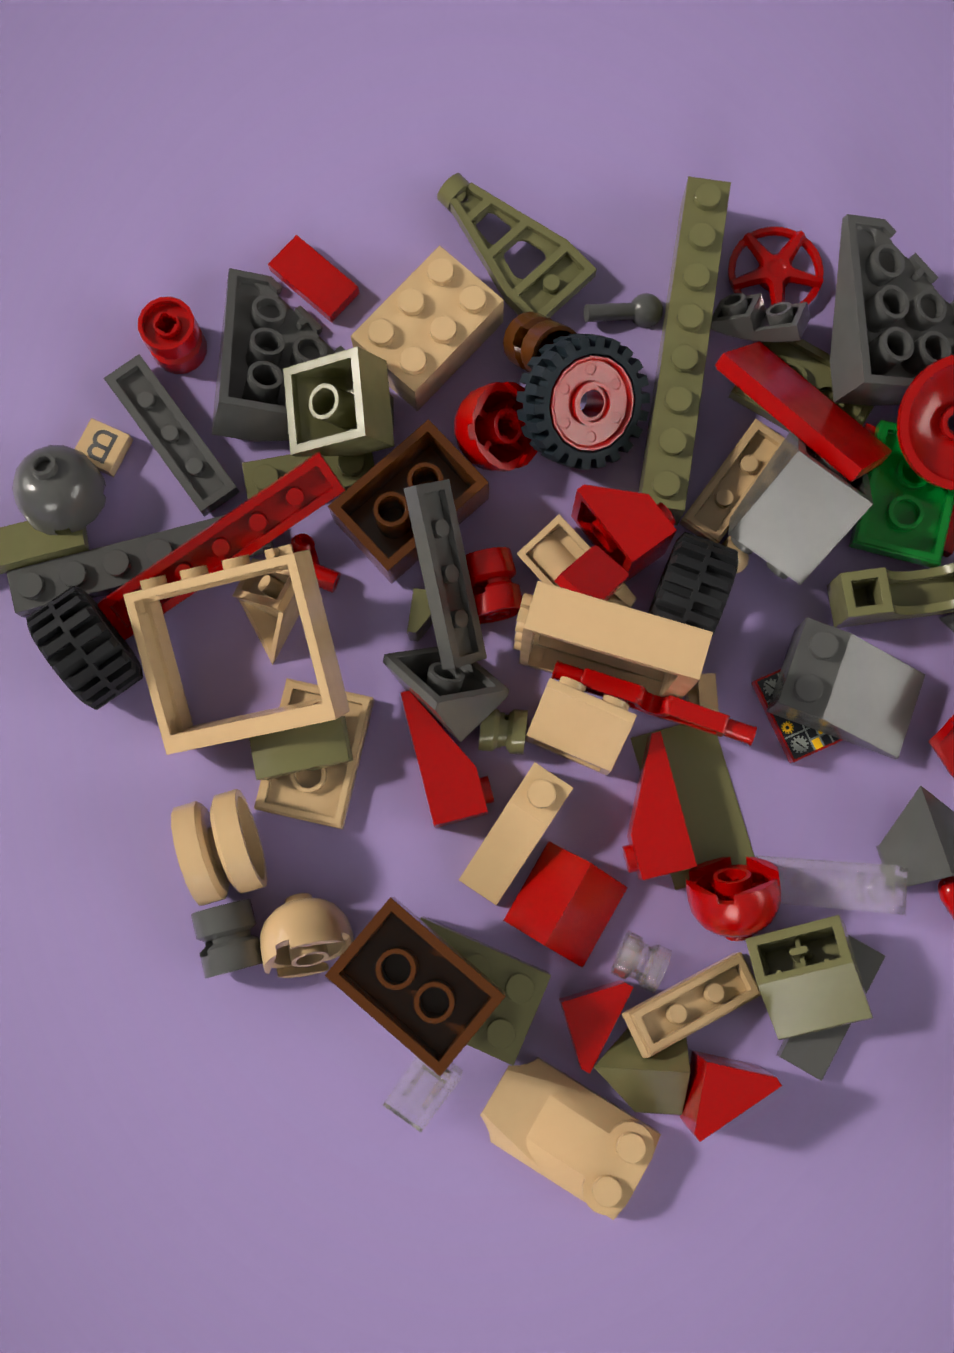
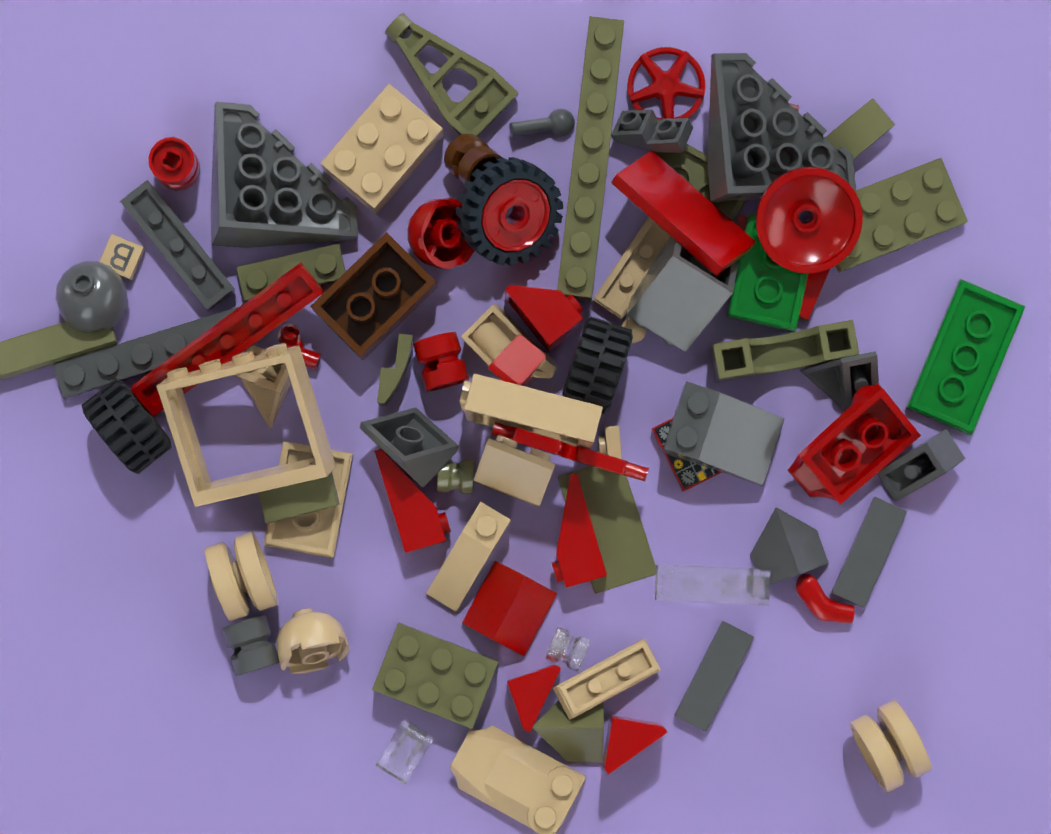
camera: 10 degrees left, 5 degrees up
(314, 278) = (285, 105): red tile -> none
(339, 405) = (314, 223): olive slope -> none
(416, 985) = (396, 670): reddish brown brick -> none
(445, 573) = (405, 358): dark grey plate -> none
(734, 898) = (636, 597): red cylinder -> none
(809, 977) = (692, 654): olive slope -> none

